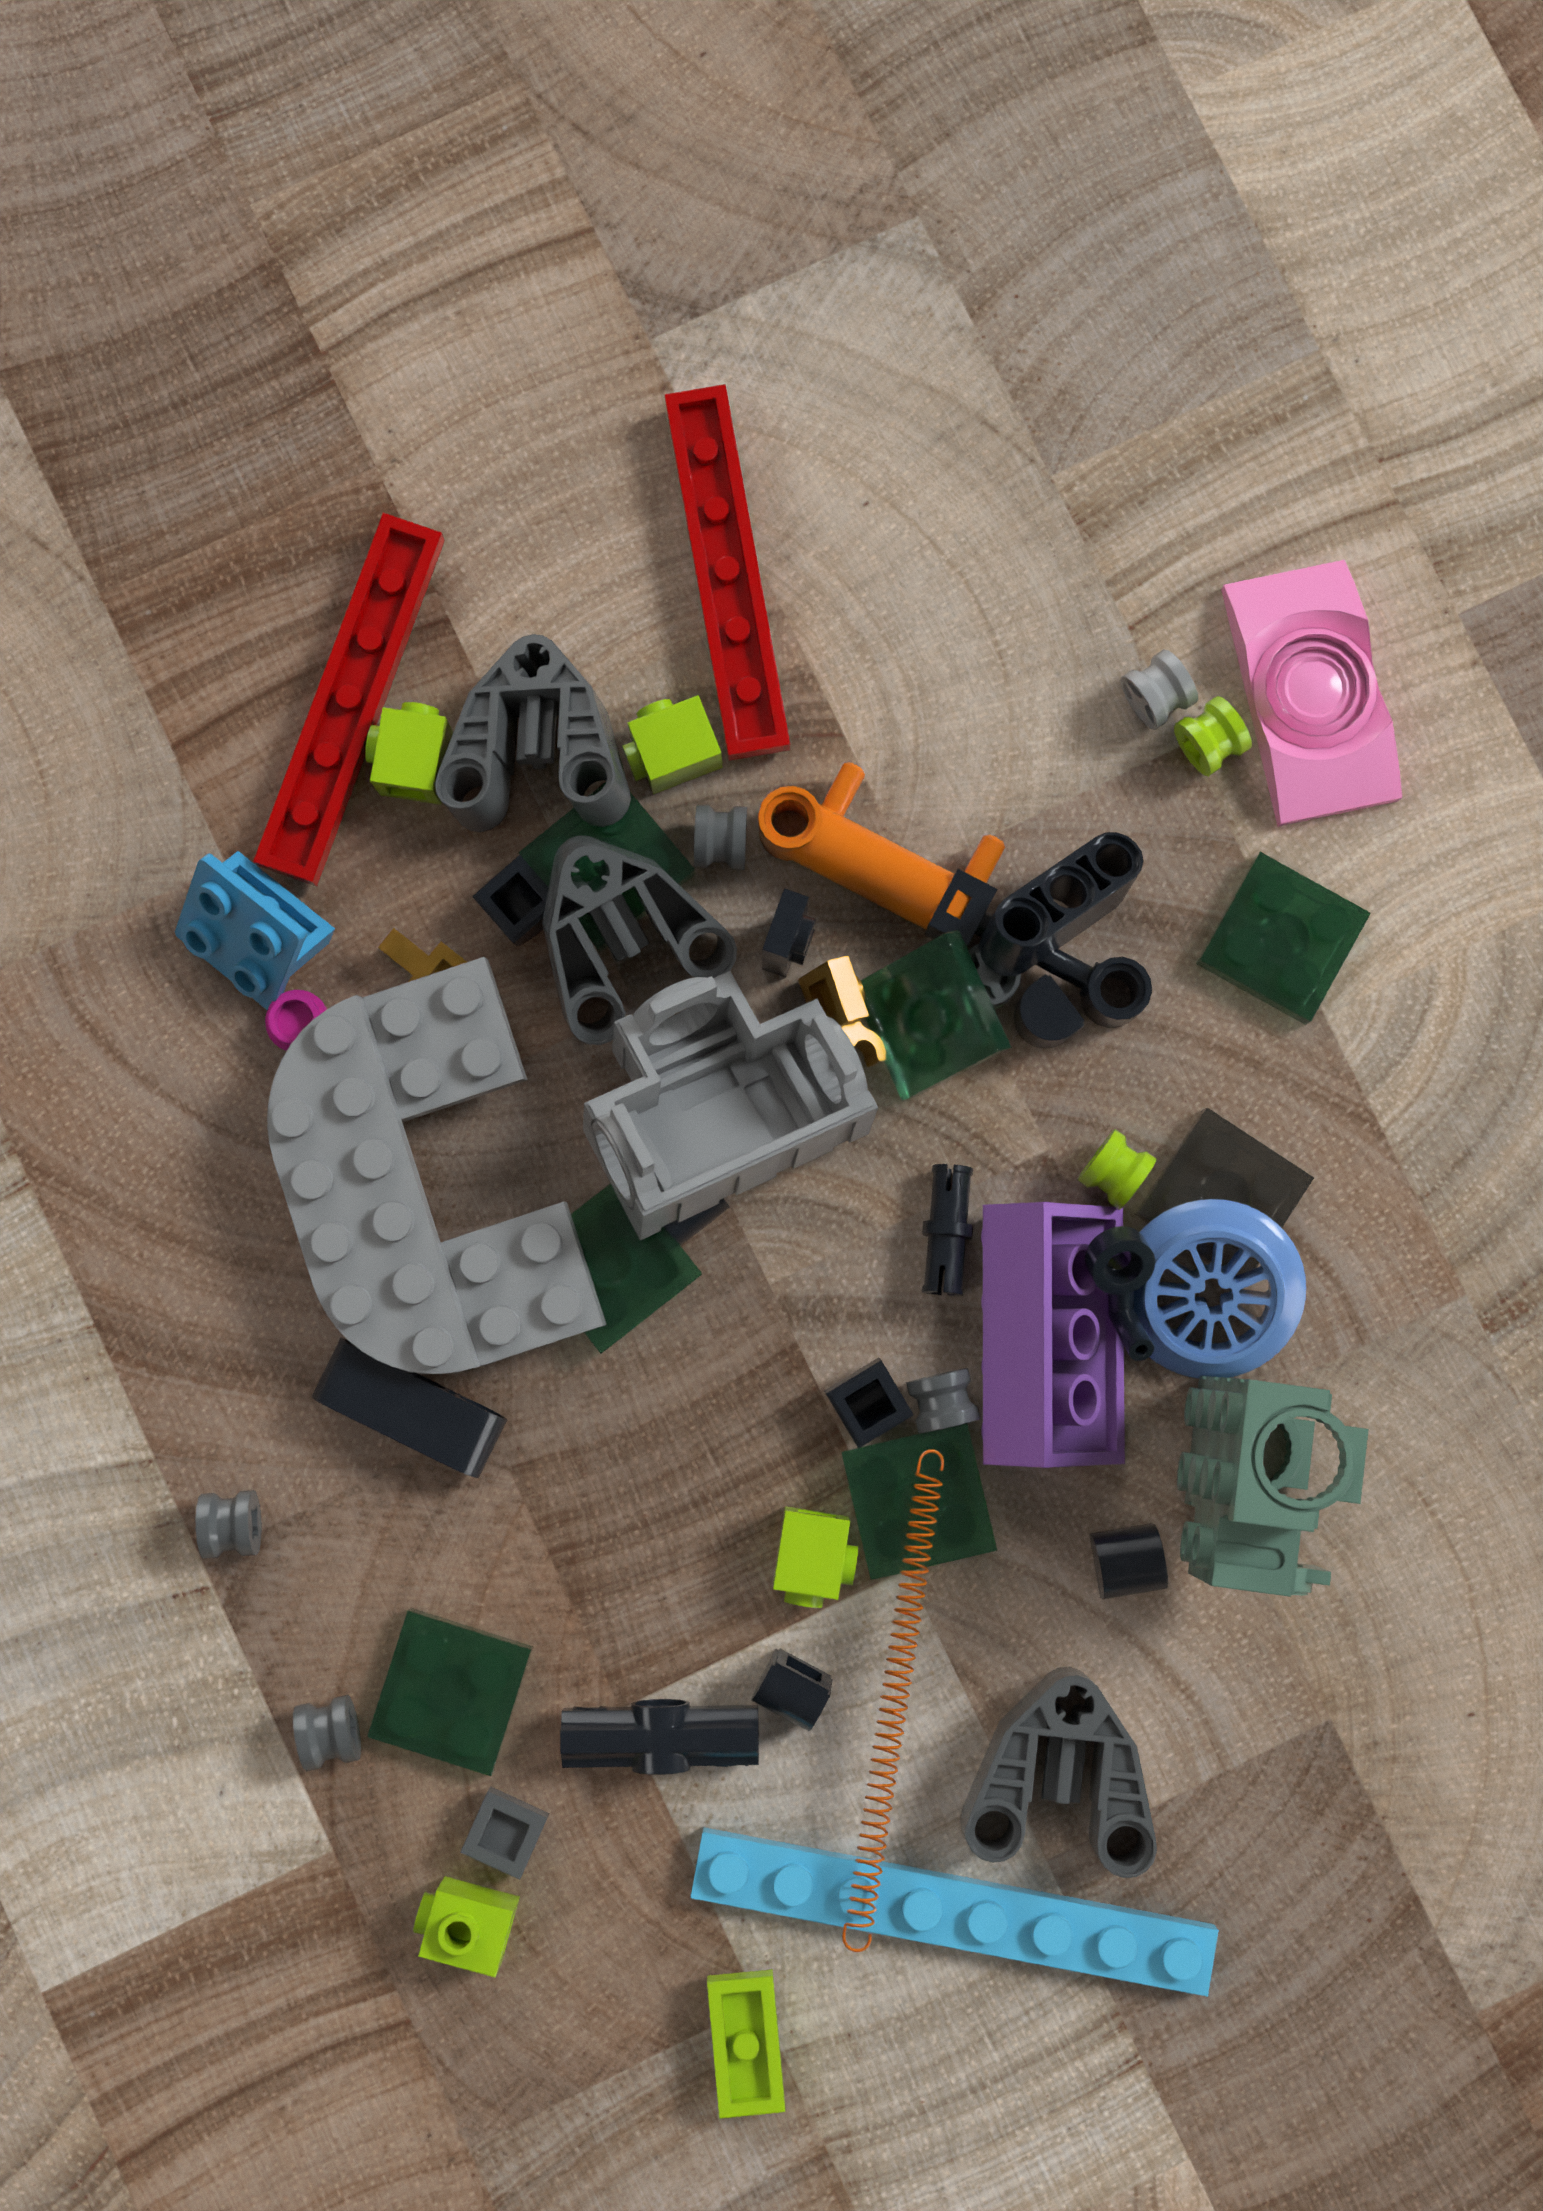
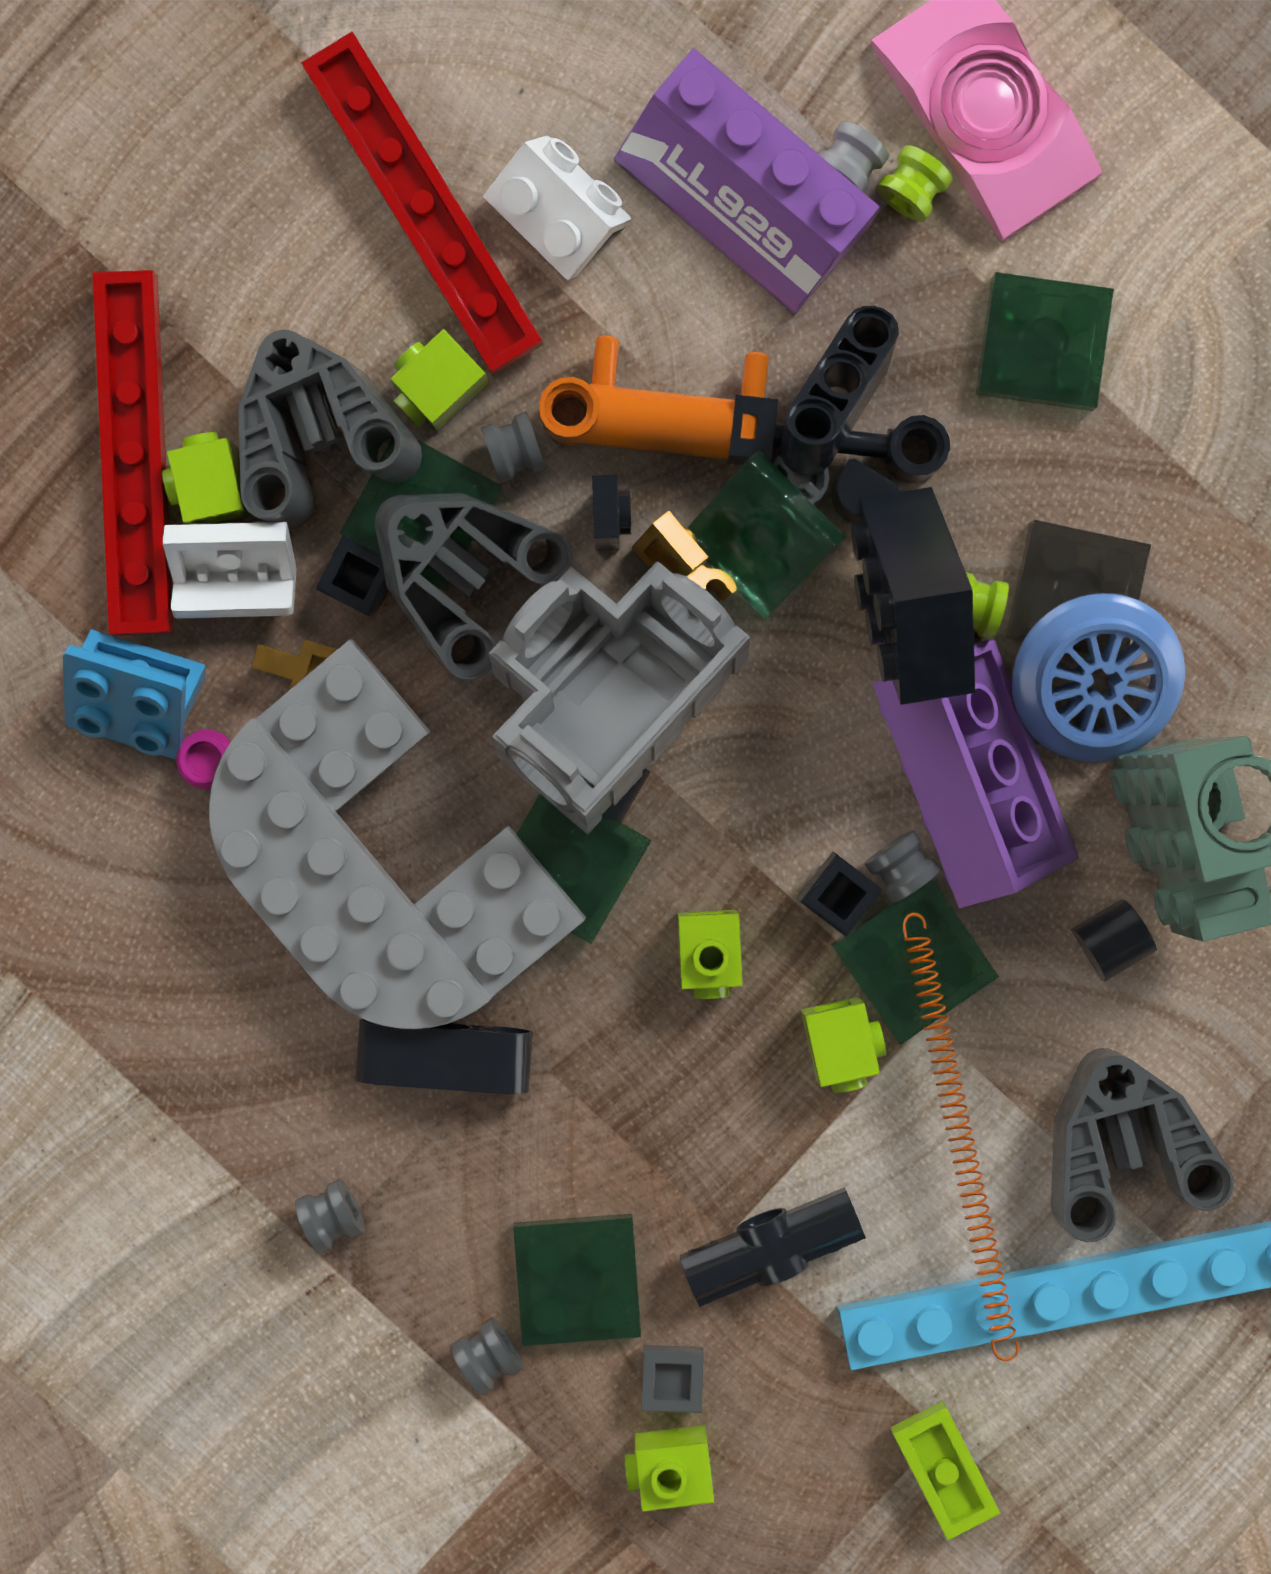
camera: 15 degrees left, 5 degrees up
(397, 845) = (231, 569): none -> white bracket
(715, 1410) = (709, 952): none -> lime brick
(793, 1689) = (869, 1162): black brick -> none
(856, 622) = (556, 204): none -> white bracket
(947, 1230) = (849, 717): black pin -> none
(1048, 671) = (745, 181): none -> medium lavender slope
(1055, 1131) = (914, 596): none -> black brick
(1120, 1278) = (1011, 690): black plate -> none

